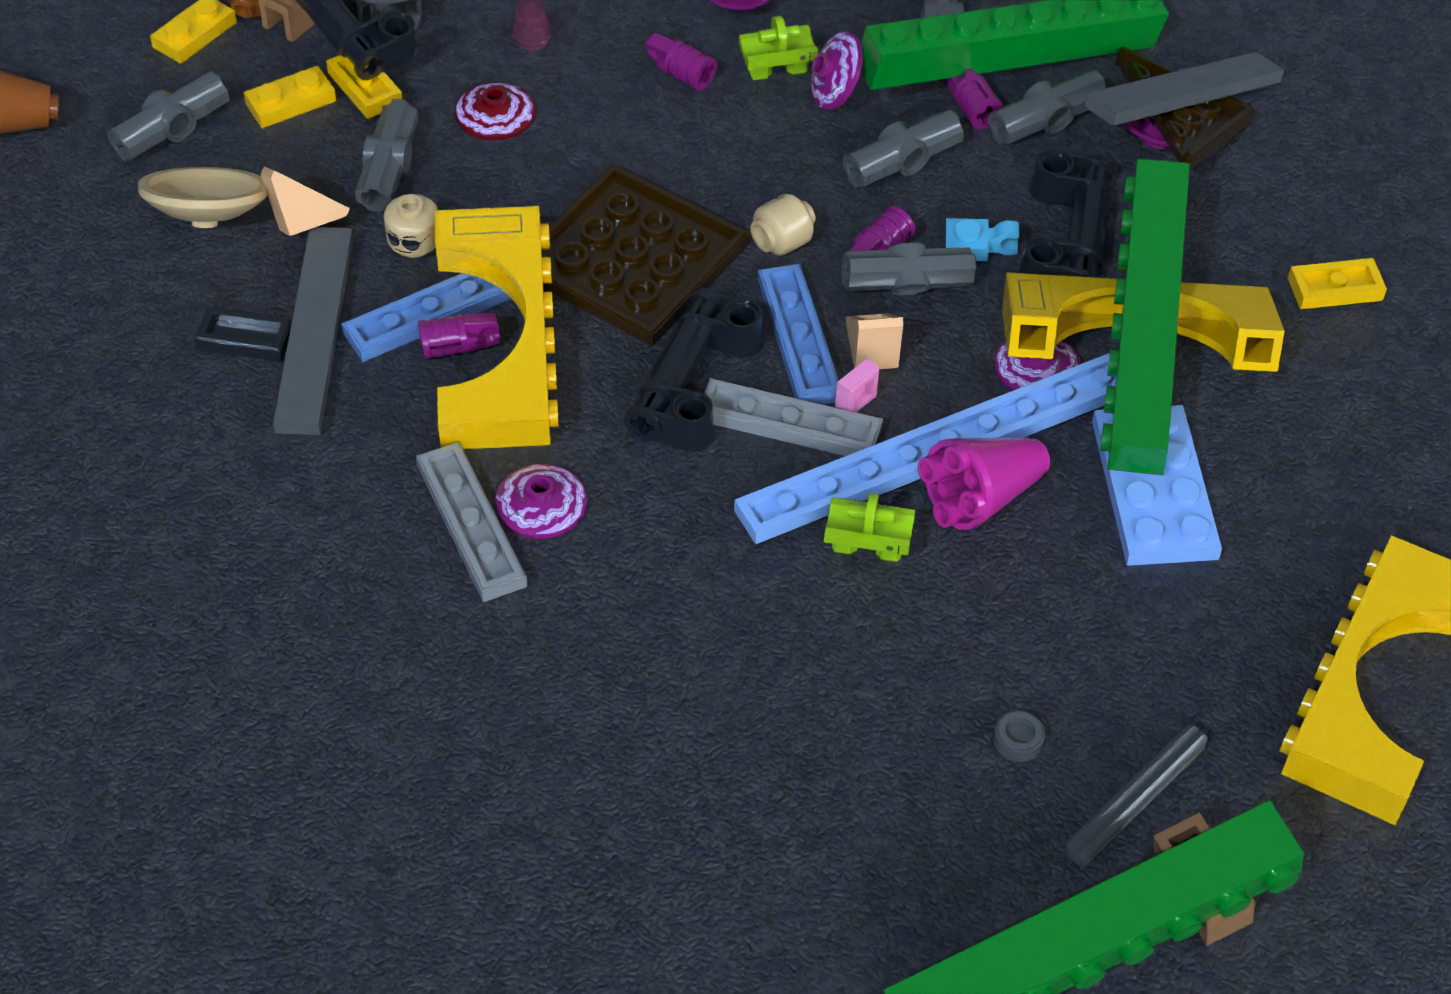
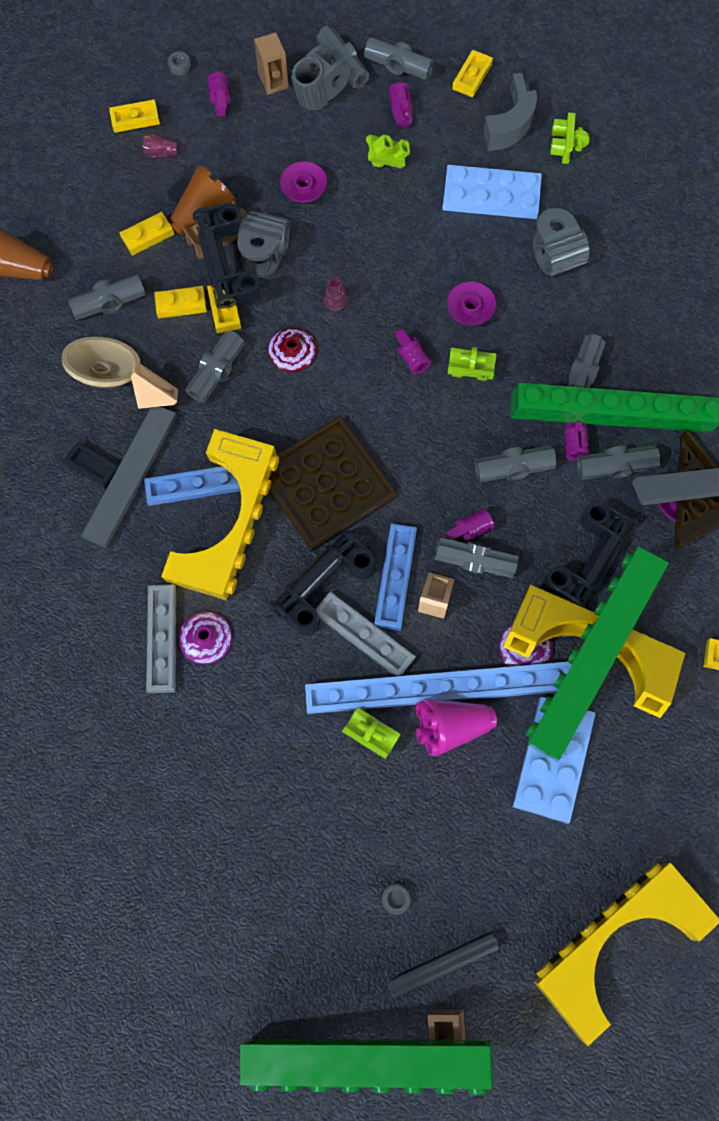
camera: 25 degrees right, 20 degrees up
(410, 225) = (203, 422): tan head -> none
(458, 334) = (202, 509): magenta hinge -> none
(783, 224) = (418, 496): tan head -> none
(836, 70) = (497, 395): magenta dish -> none
(857, 387) = (408, 631): bright pink tile -> none
(981, 238) = (527, 543): medium azure plate -> none

